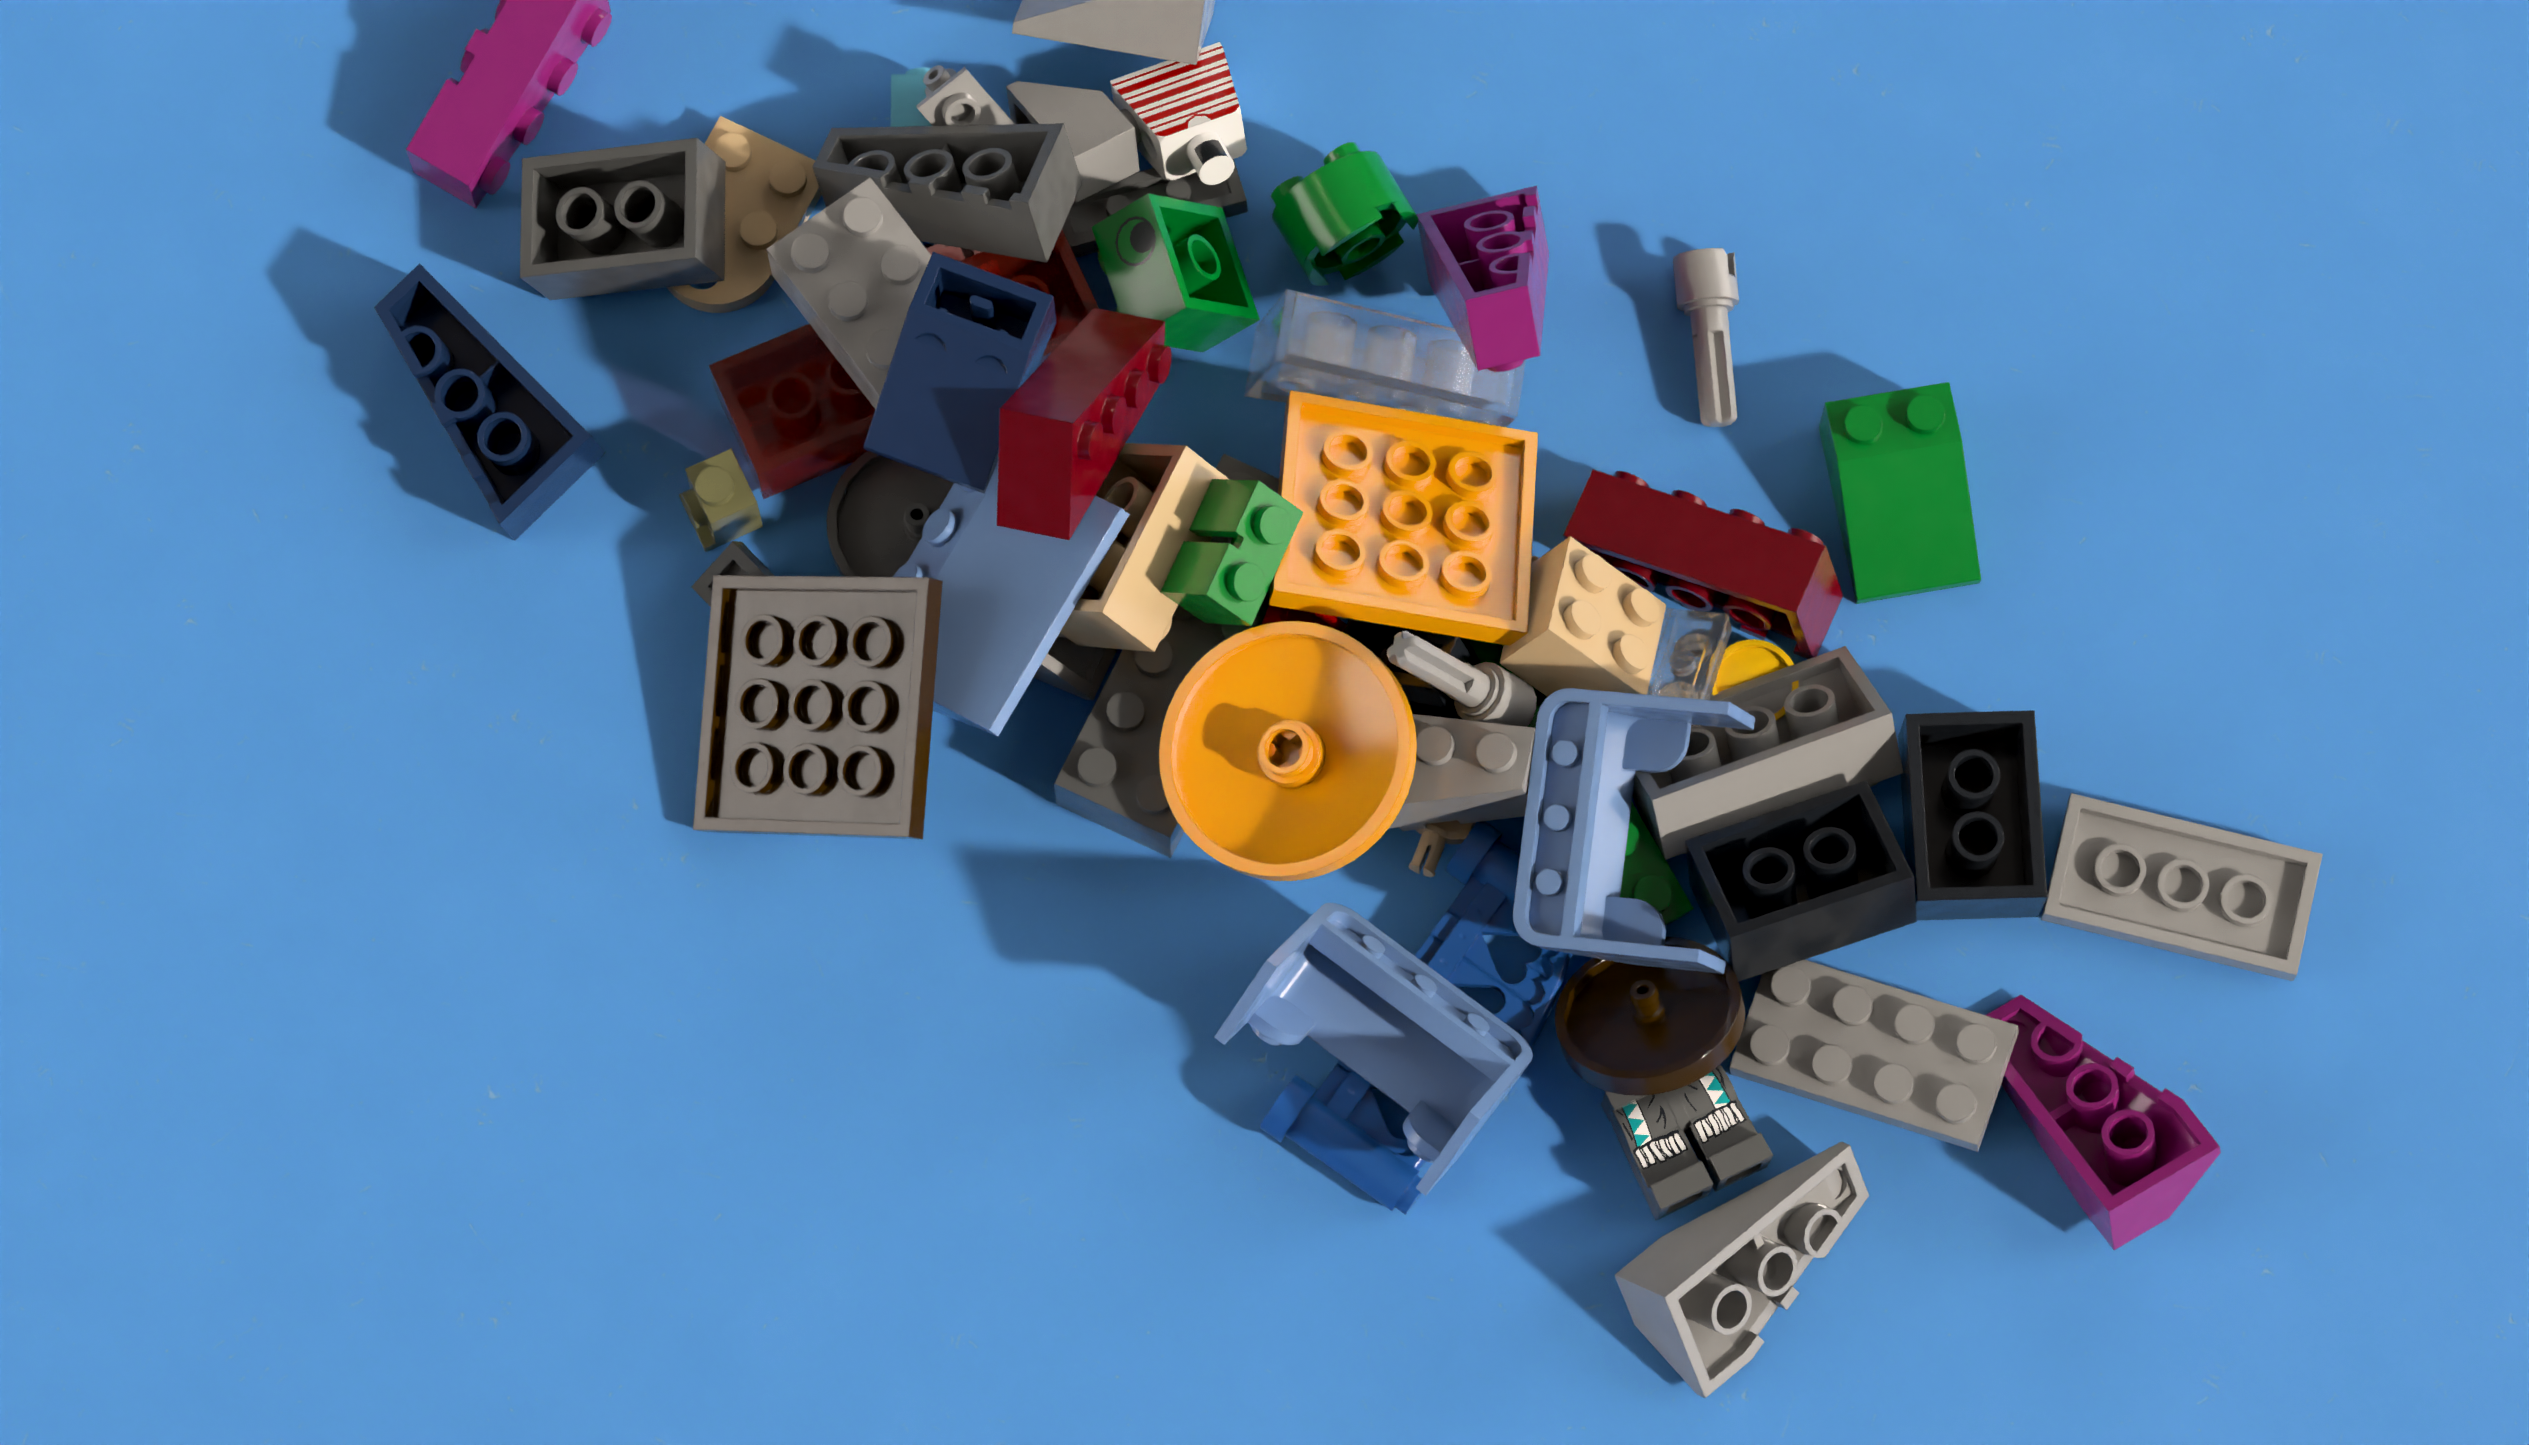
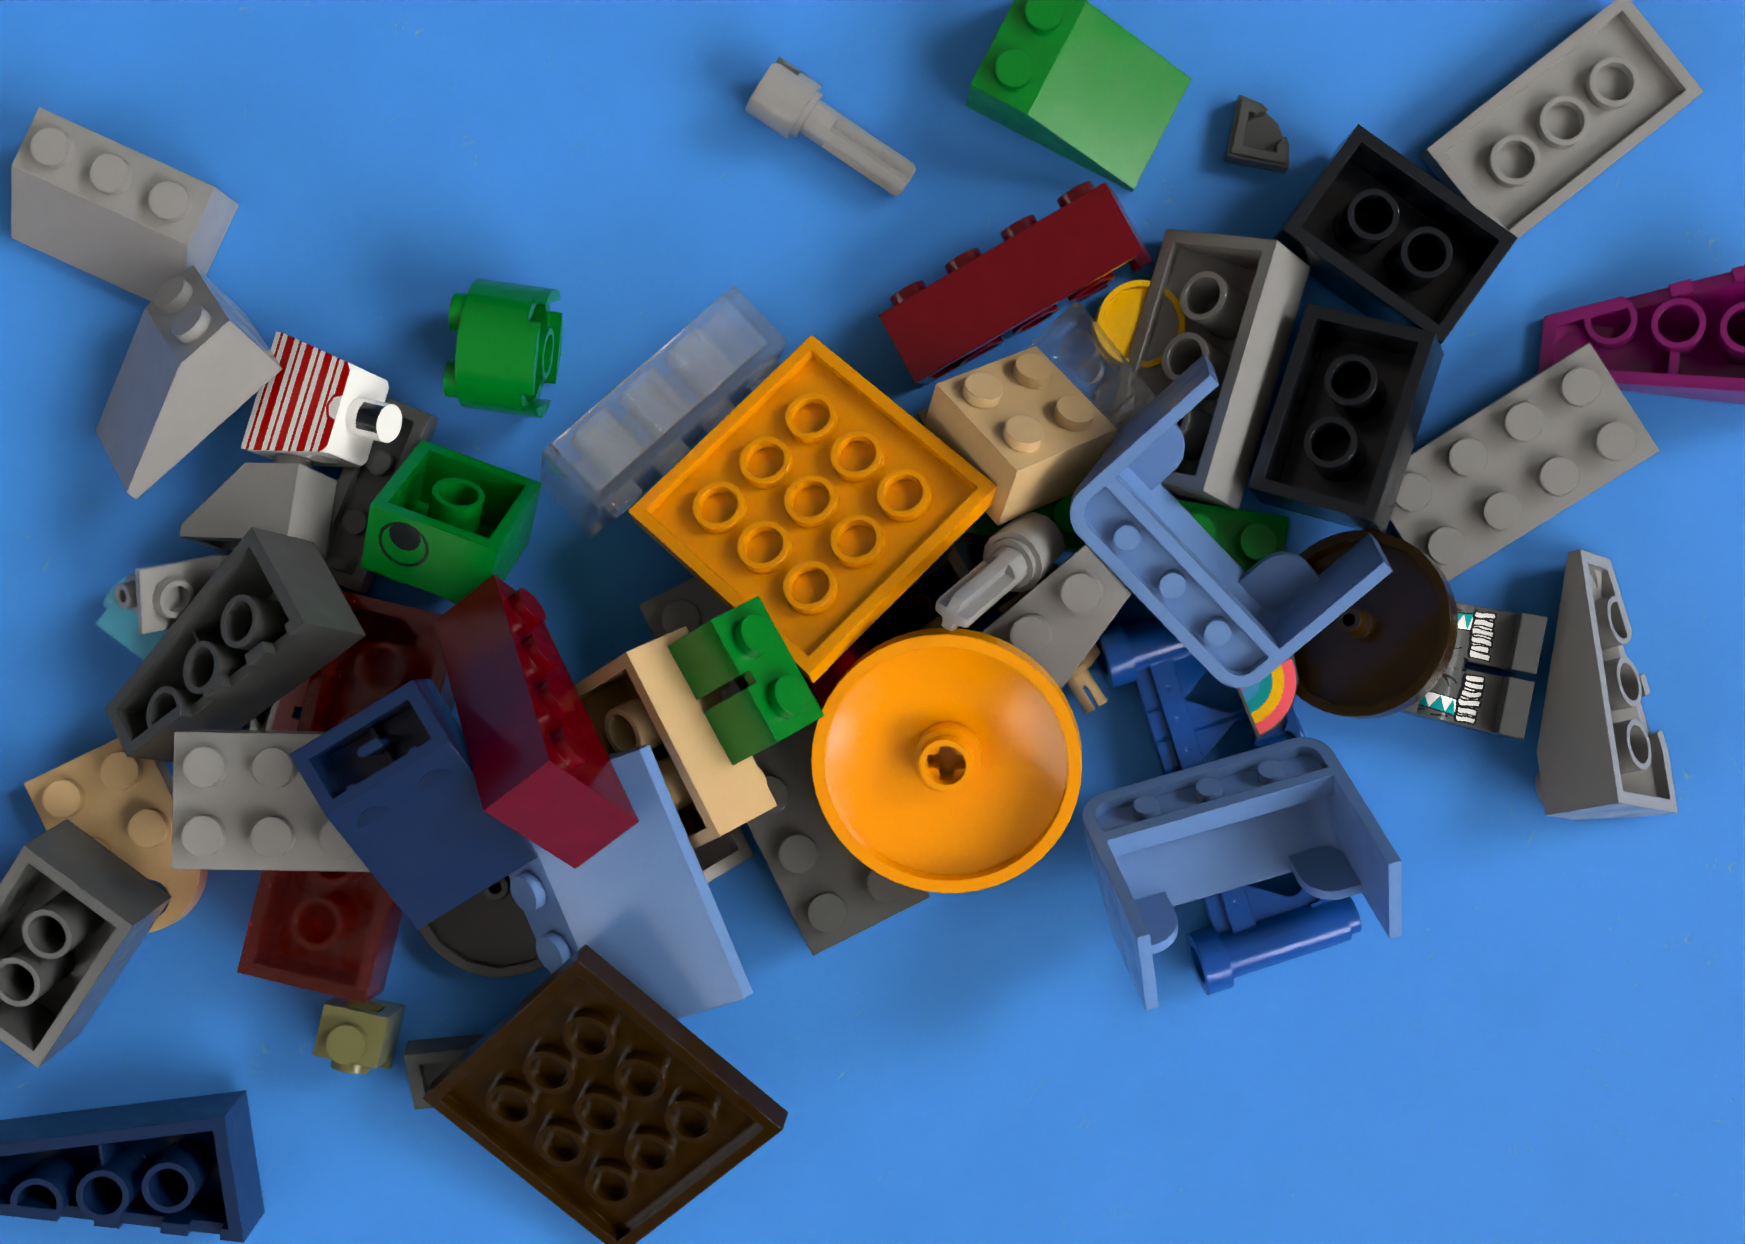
camera: 55 degrees left, 15 degrees up
(1490, 274) = (658, 273): magenta wedge -> none
(1538, 986) = (1271, 698): none -> tile
(1975, 663) = (1256, 138): none -> dark grey tile

